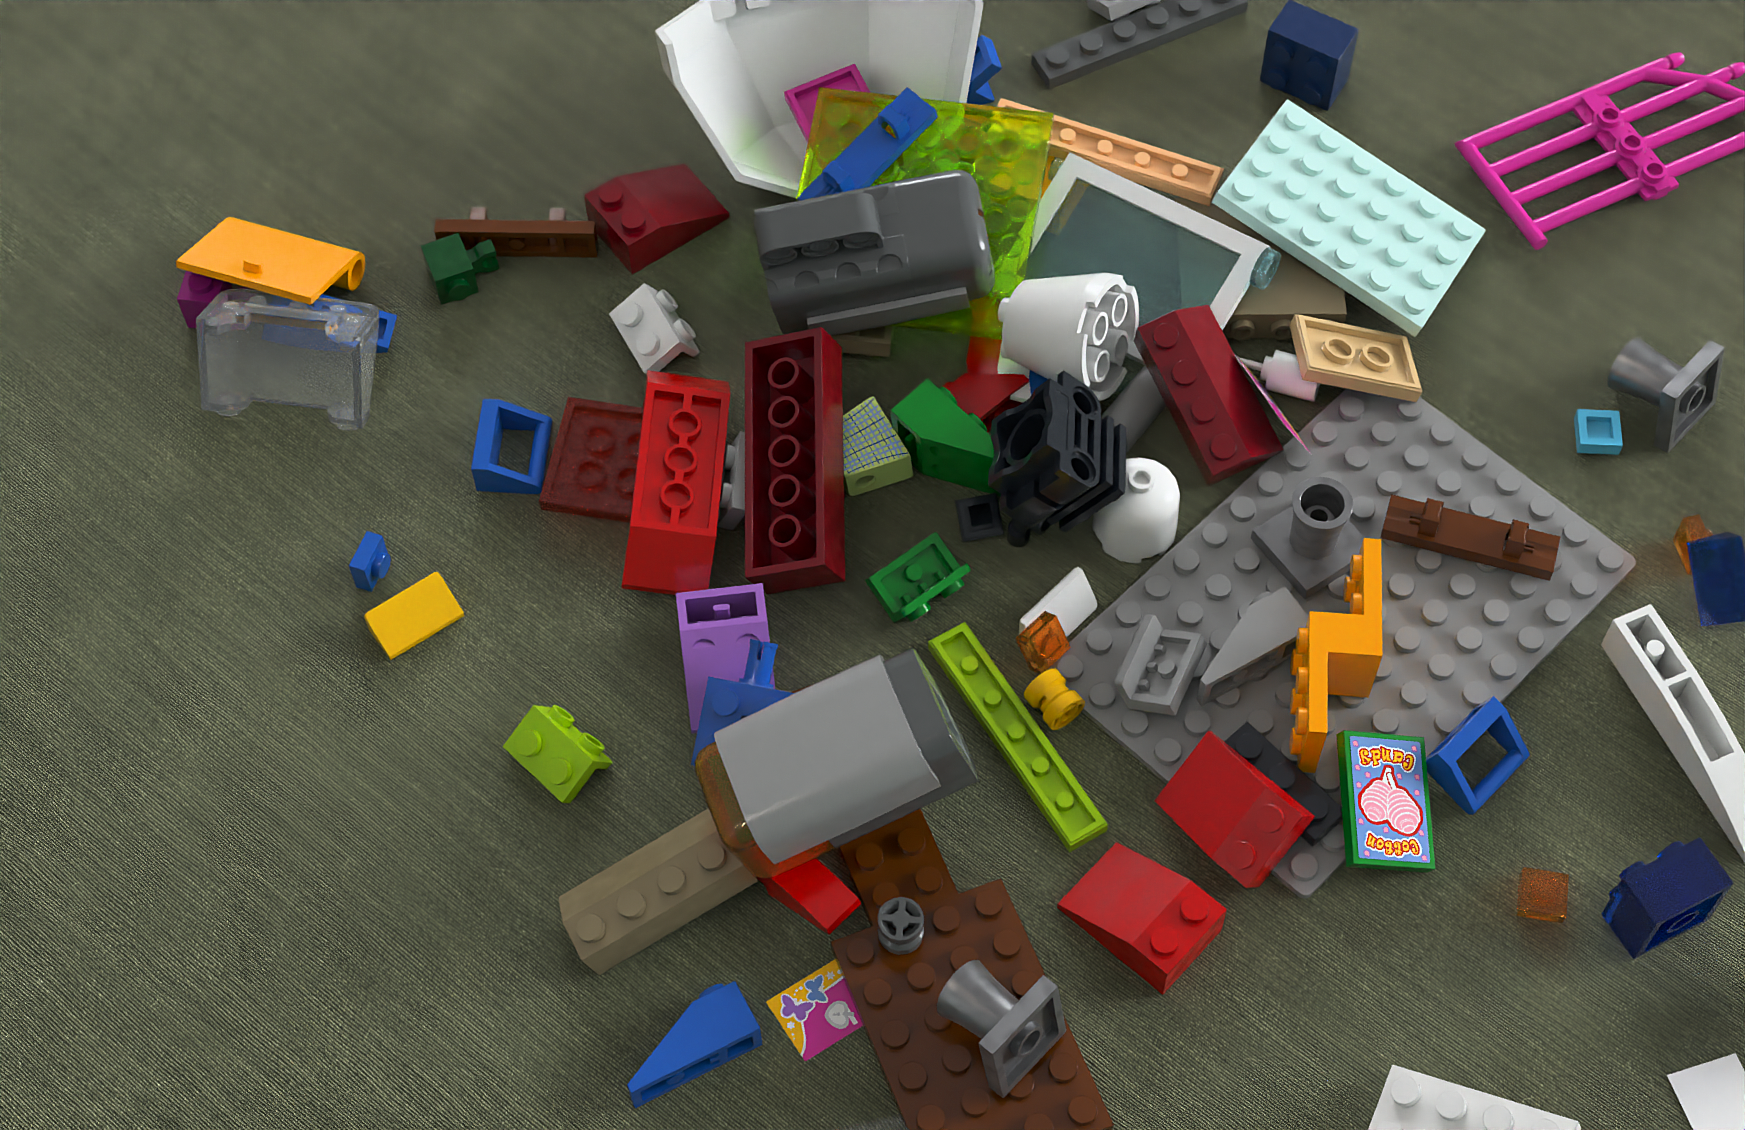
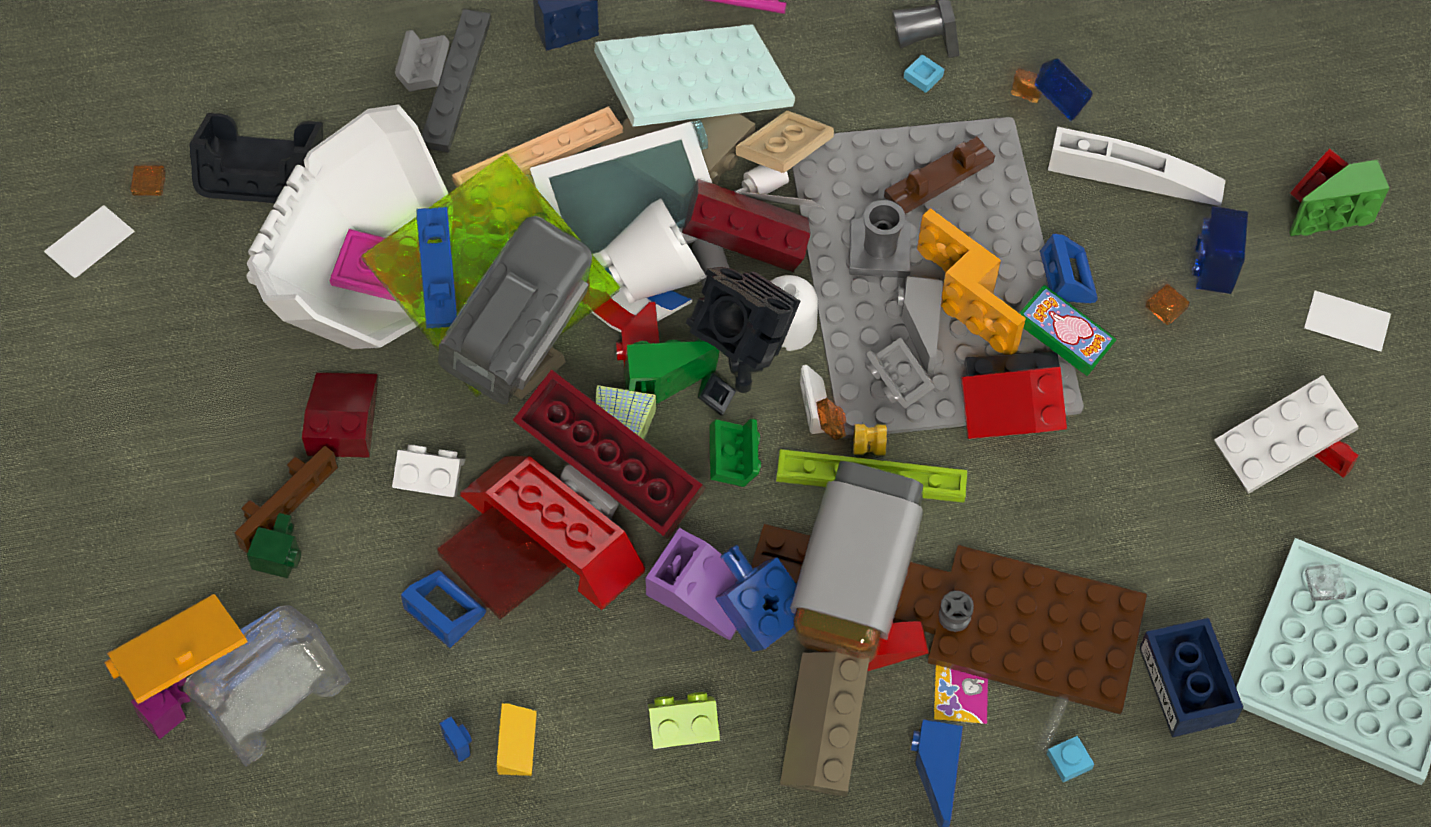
camera: 55 degrees left, 0 degrees up
(1010, 1029) = (1059, 598): flat silver plant -> none
(1144, 914) = (1036, 491): red slope -> none

